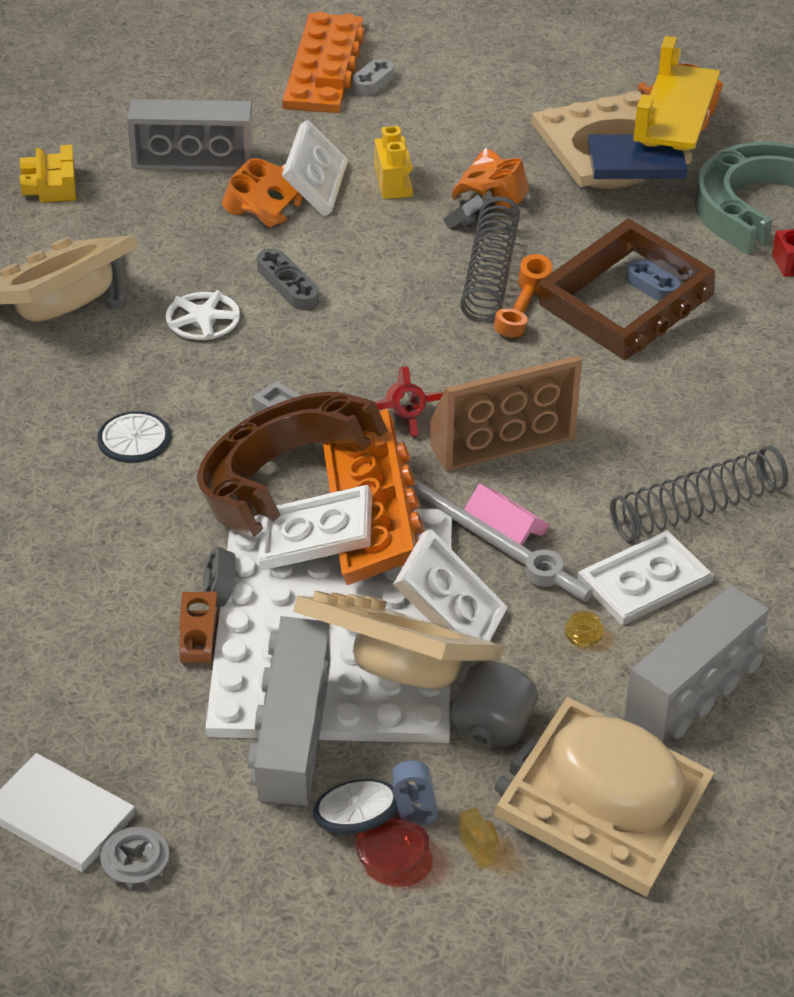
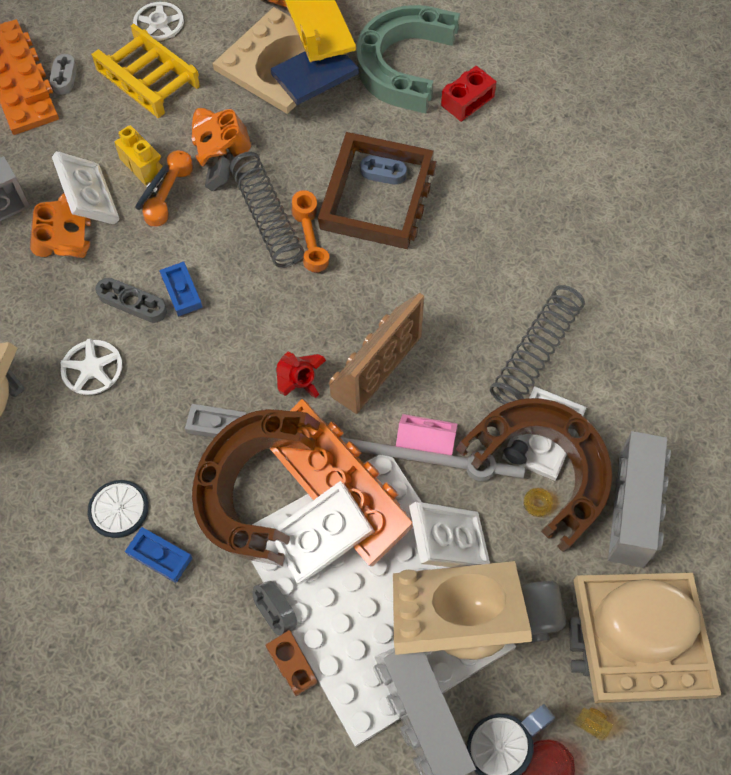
camera: 30 degrees left, 20 degrees up
(141, 485) = (158, 554): none -> blue plate
(345, 289) = (181, 289): none -> blue plate
(373, 216) = (155, 208): none -> orange piece
(383, 191) = (152, 187): none -> black wheel
(440, 114) = (138, 88): none -> yellow fence
(511, 71) = (159, 20): none -> white wheel
(592, 569) = (516, 453): none -> black piece
(641, 545) = (586, 453): none -> reddish brown piece

